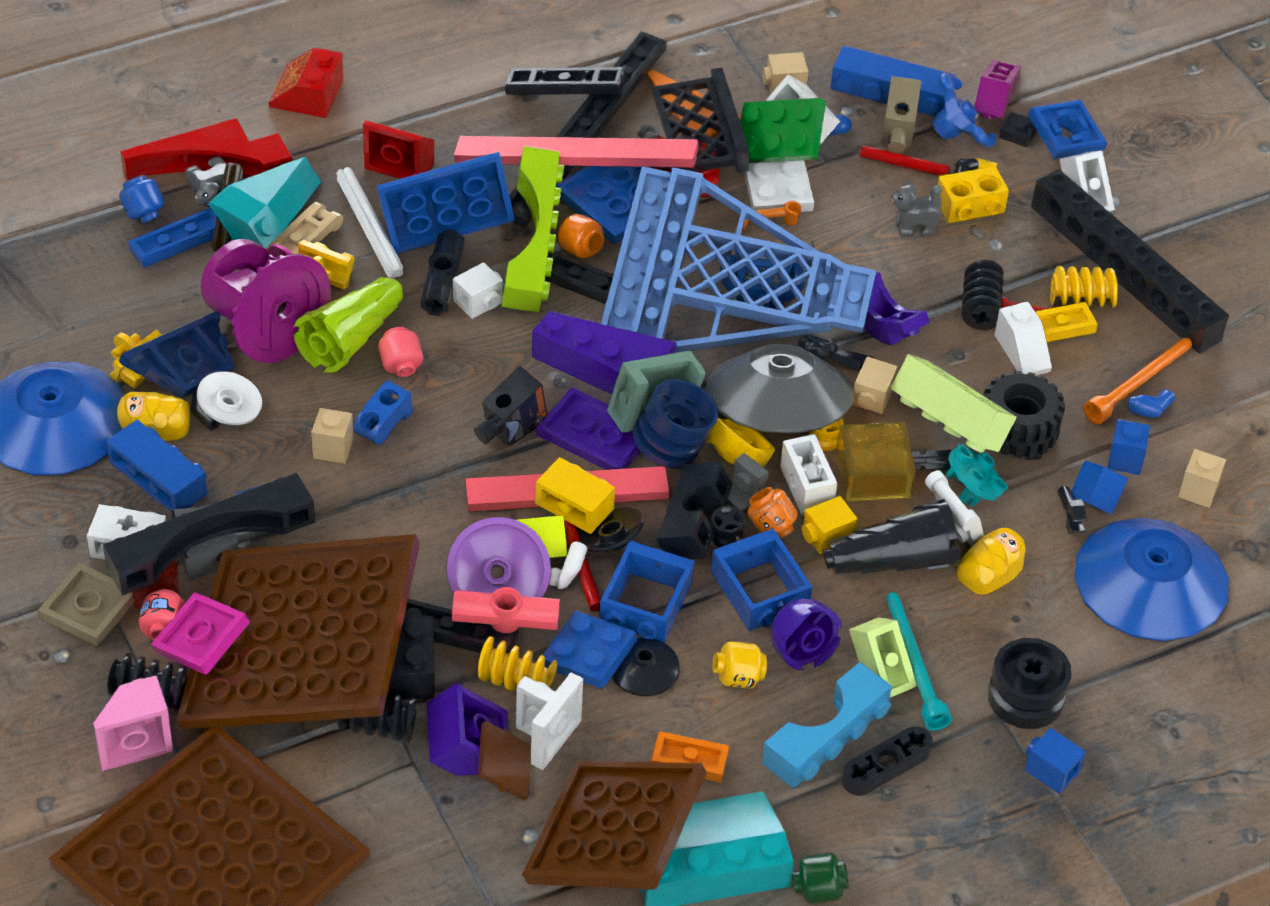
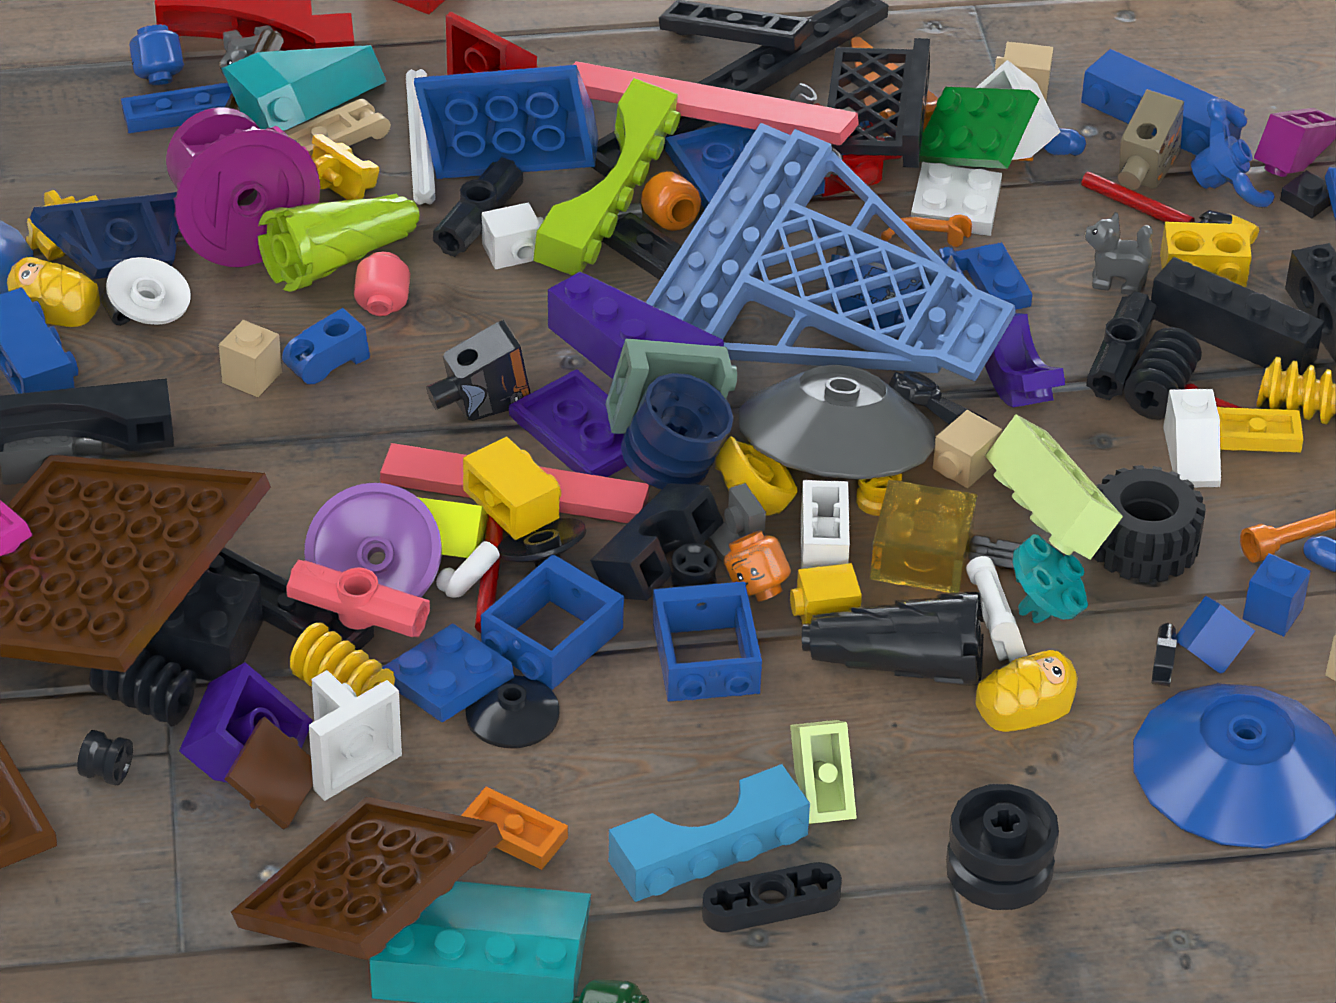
camera: 20 degrees right, 5 degrees down
(375, 780) = (105, 757): none -> black wheel
(740, 664) = (629, 734): yellow head -> none
(805, 633) = (730, 716): dark purple cylinder -> none
(831, 240) = (992, 272): none -> blue plate
(934, 711) = (861, 853): teal piece -> none
(945, 279) = (1121, 345): none -> black piece
(1012, 240) = (1235, 317): none -> black brick
(1054, 760) = (994, 950): blue brick -> none

